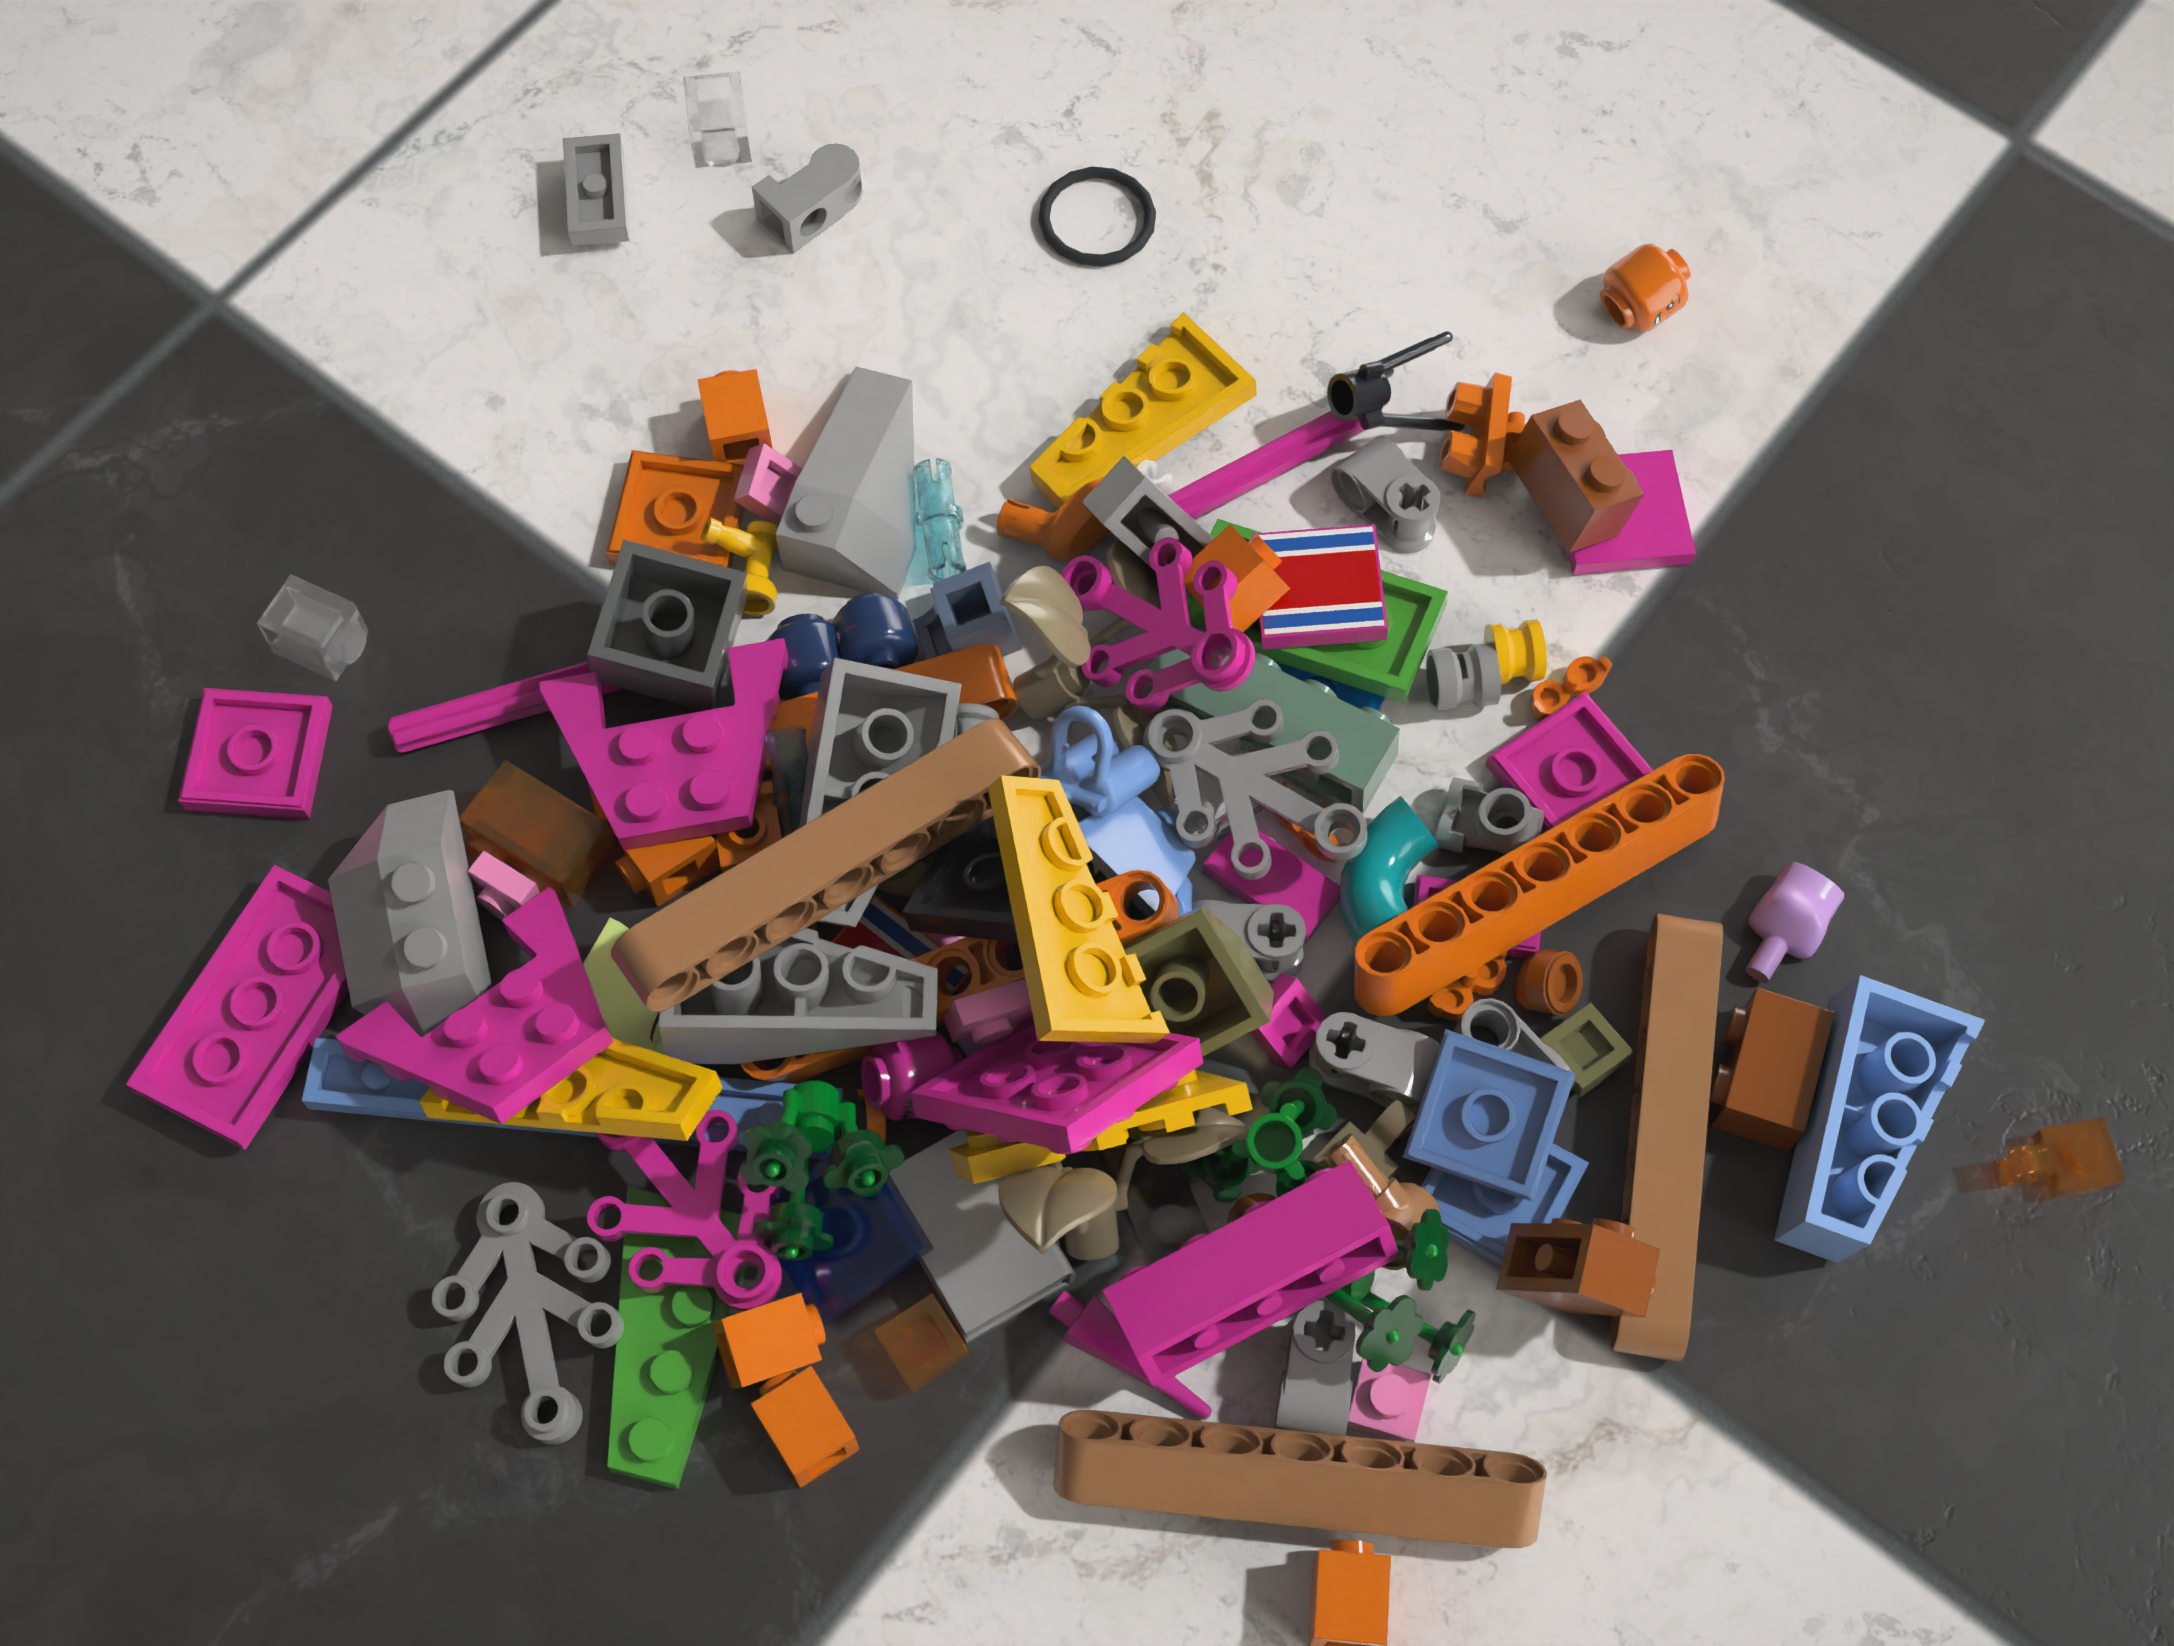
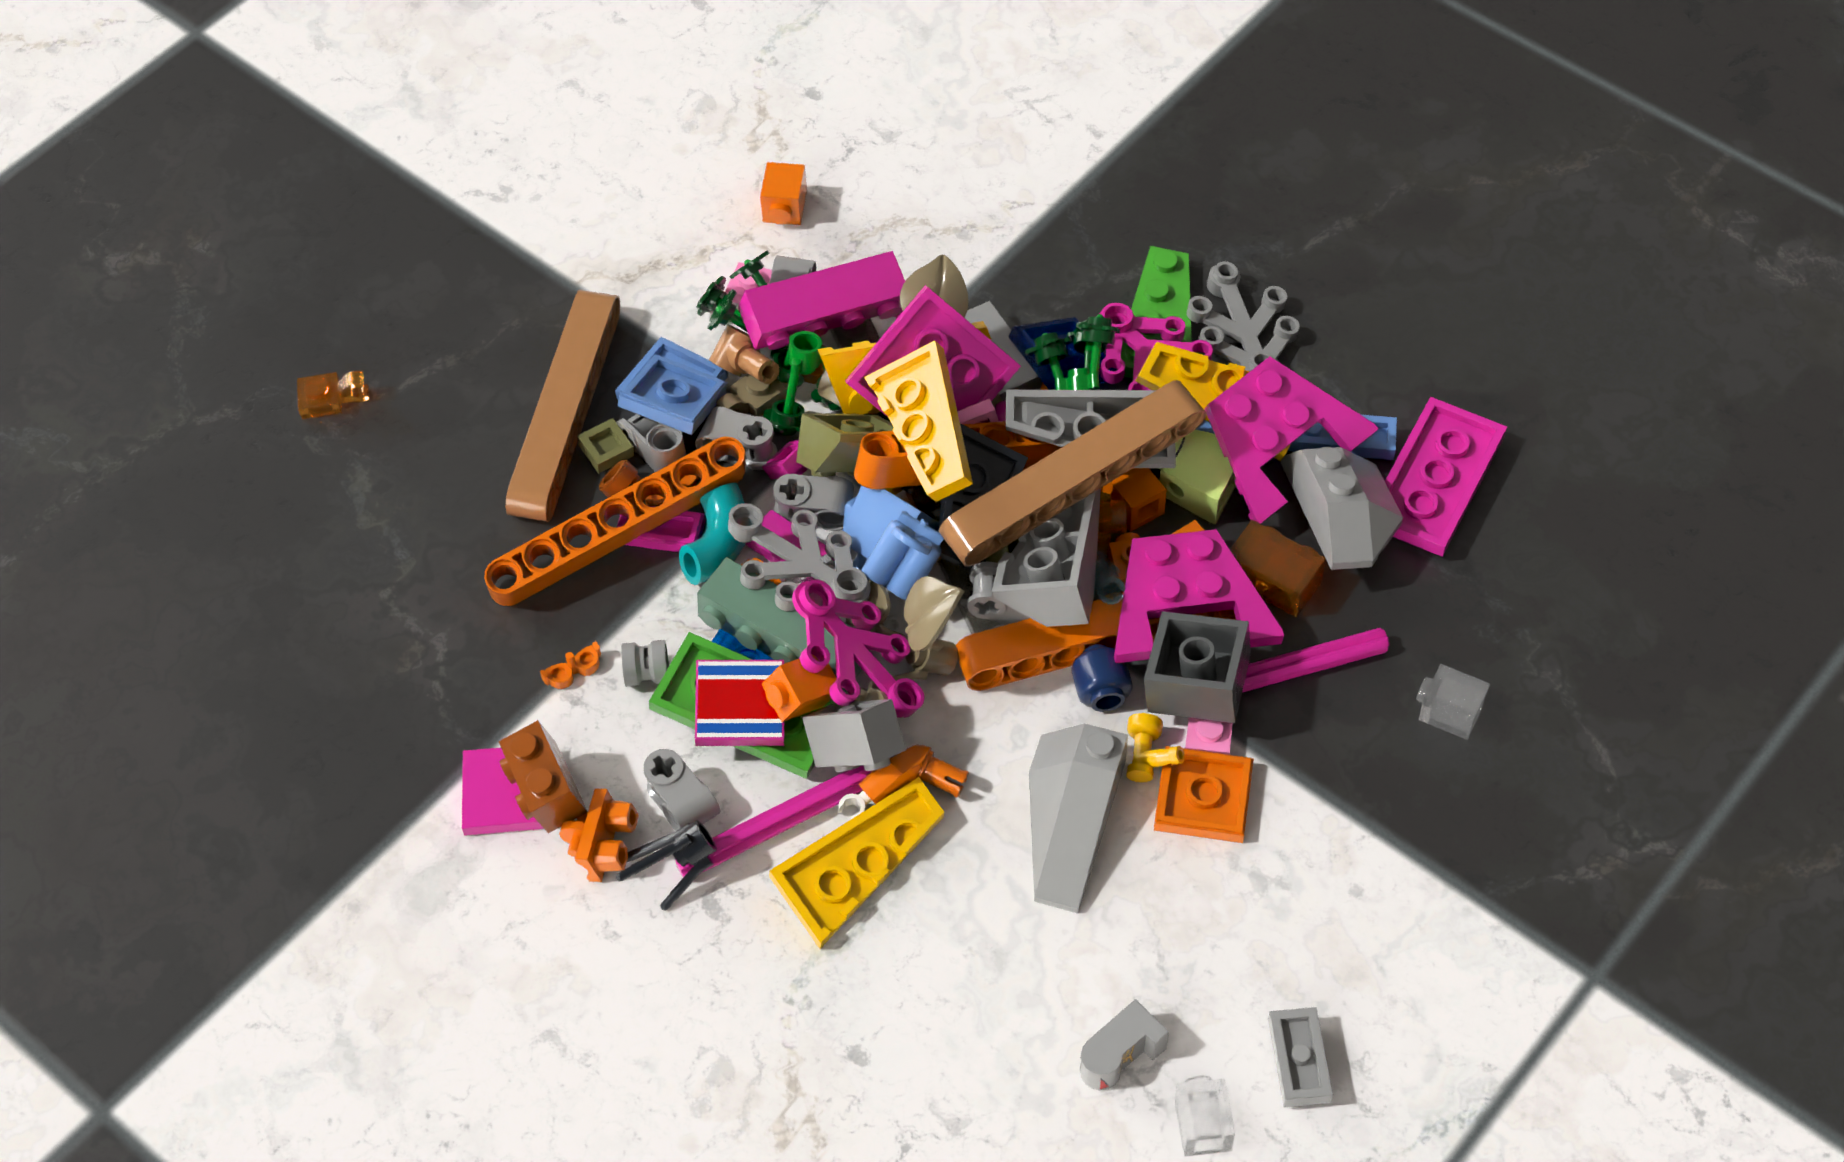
camera: 175 degrees left, 10 degrees down
(255, 753) = (1477, 632): dark pink tile -> none
(500, 886) = (1292, 527): bright pink plate -> none
(734, 414) = (1166, 852): orange brick -> none
(766, 483) = (1136, 801): bright pink plate -> none
(769, 1340) = (1098, 290): orange brick -> none
(804, 1424) = (1079, 266): orange brick -> none
(876, 632) = (1055, 688): dark blue head -> none
(921, 1343) = (1016, 304): clear orange plate -> none
(939, 519) = (1011, 783): clear light blue pin -> none
(966, 615) = (989, 700): sand blue brick -> none
(1088, 258) = (883, 1083): black piece -> none
(1299, 1478) = (786, 241): medium nougat beam -> none
(1476, 818) = (638, 572): light grey plate -> none
(1519, 650) = (605, 679): yellow wheel -> none
(1568, 761) = (579, 611): dark pink tile -> none
(1579, 1267) = (636, 310): dark orange brick -> none
(1645, 287) = (452, 953): orange head -> none
(1770, 1069) = (492, 432): dark orange brick -> none
(1792, 918) = (456, 522): lavender piece -> none
(1870, 1109) = (443, 402): light blue wedge -> none

